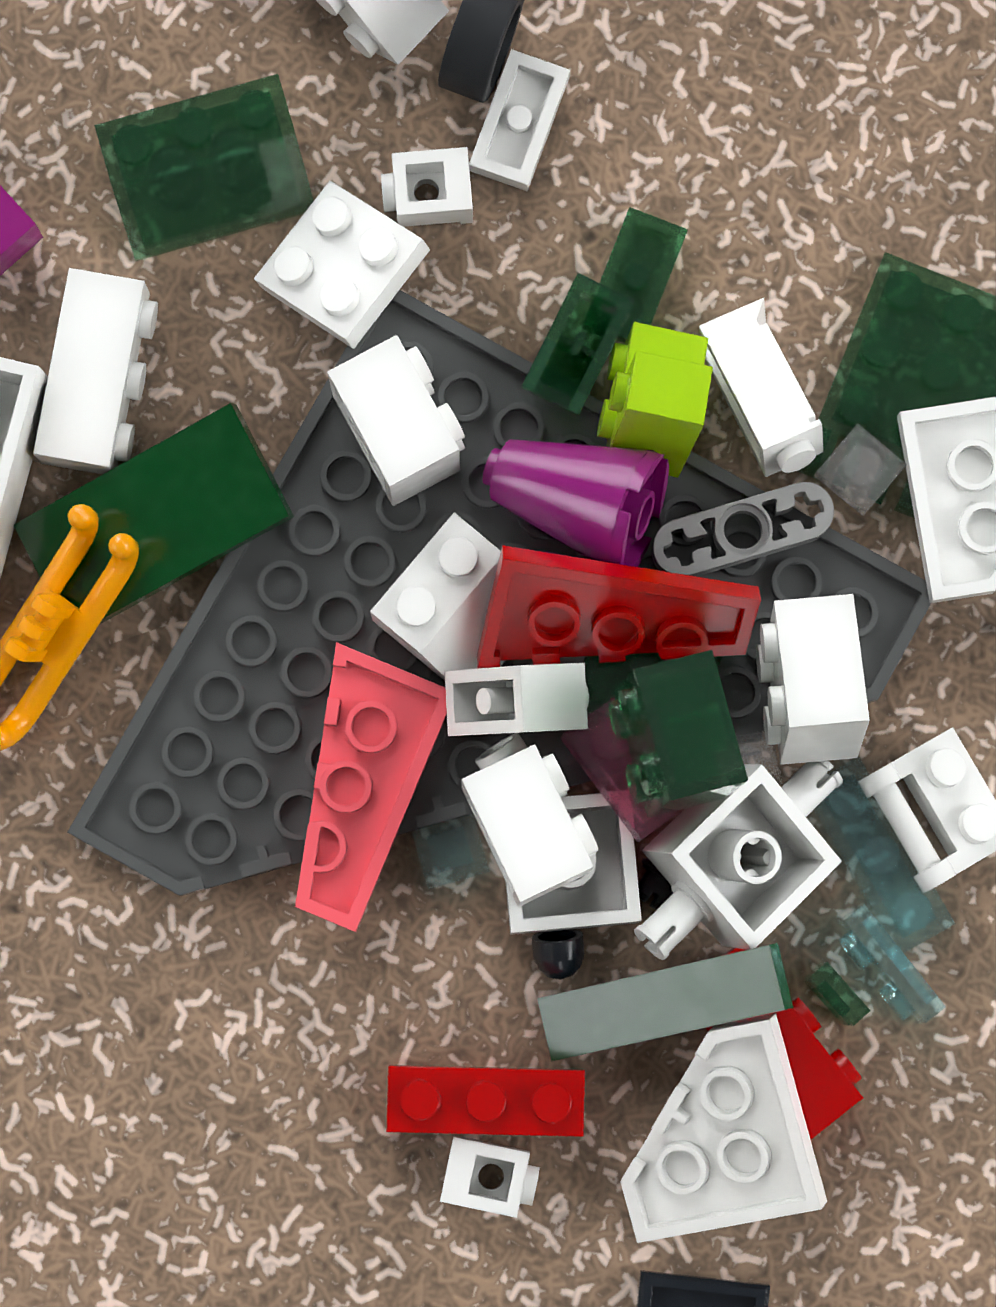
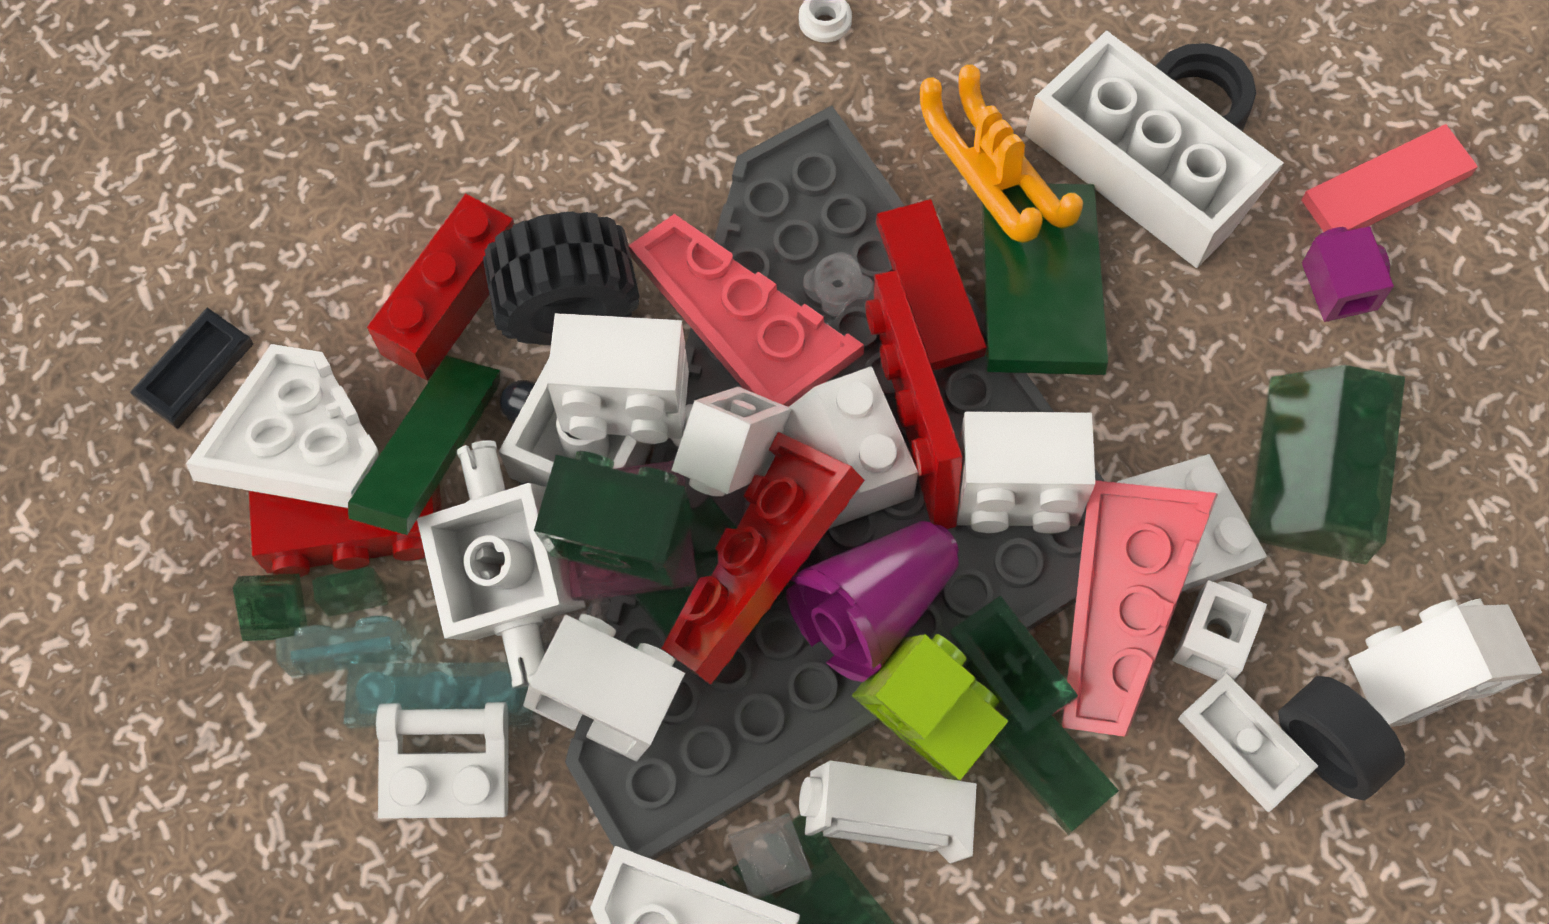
camera: 125 degrees right, 15 degrees down
(95, 372) = (1189, 293): white brick -> none
(226, 620) = (931, 284): none -> red tile
(269, 692) = (837, 267): none -> clear plate
(373, 555) = (917, 399): none -> red wing
(429, 974) = (558, 267): none -> black tyre
(450, 277) = (1129, 583): none -> coral wing
(462, 1182) = (390, 245): white brick -> none
(783, 502) = (767, 674): light grey beam -> none
(892, 1060) = (269, 606): none -> clear green plate

